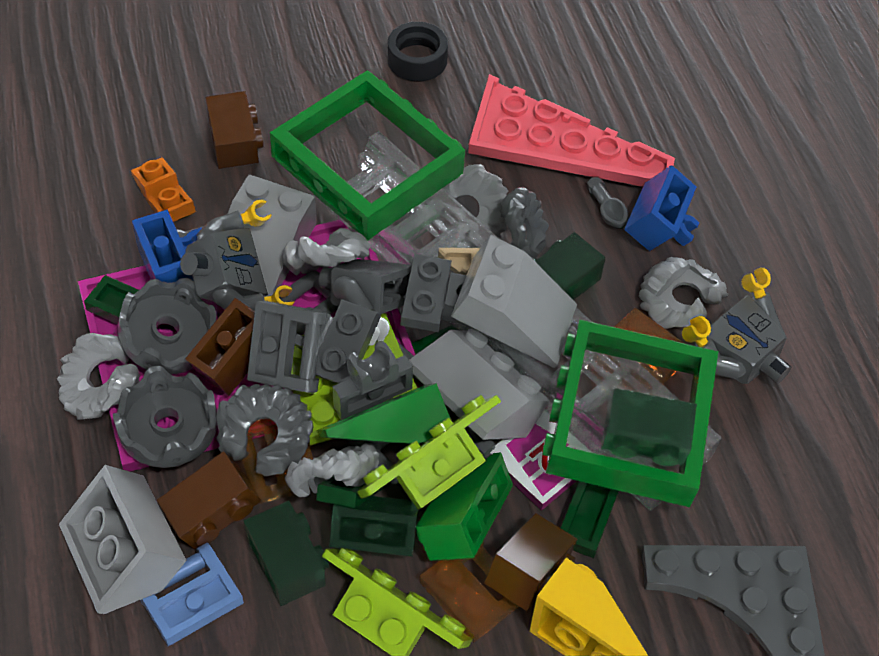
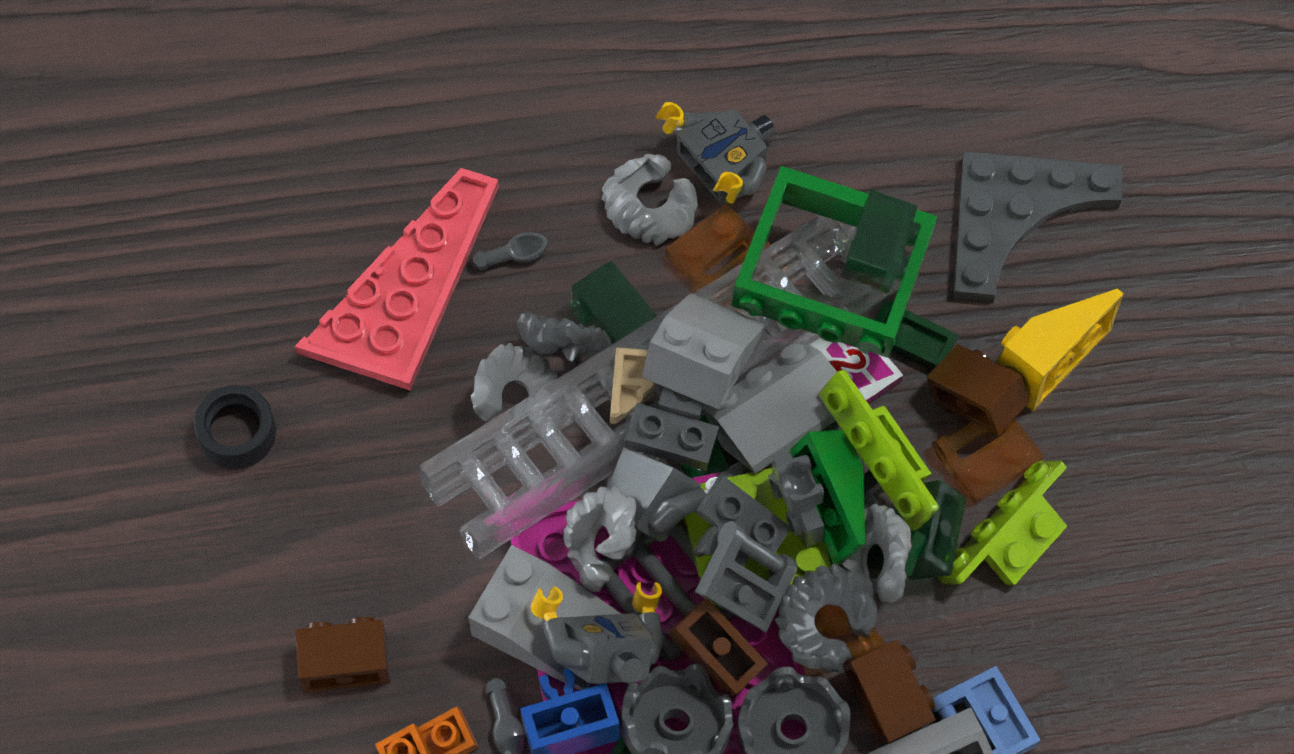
camera: 80 degrees left, 10 degrees up
(286, 553) = (947, 622): clear green brick -> none
(334, 191) = (502, 529): green window -> none
(465, 512) = (943, 449): green slope -> none
(662, 210) = (541, 194): blue brick -> none

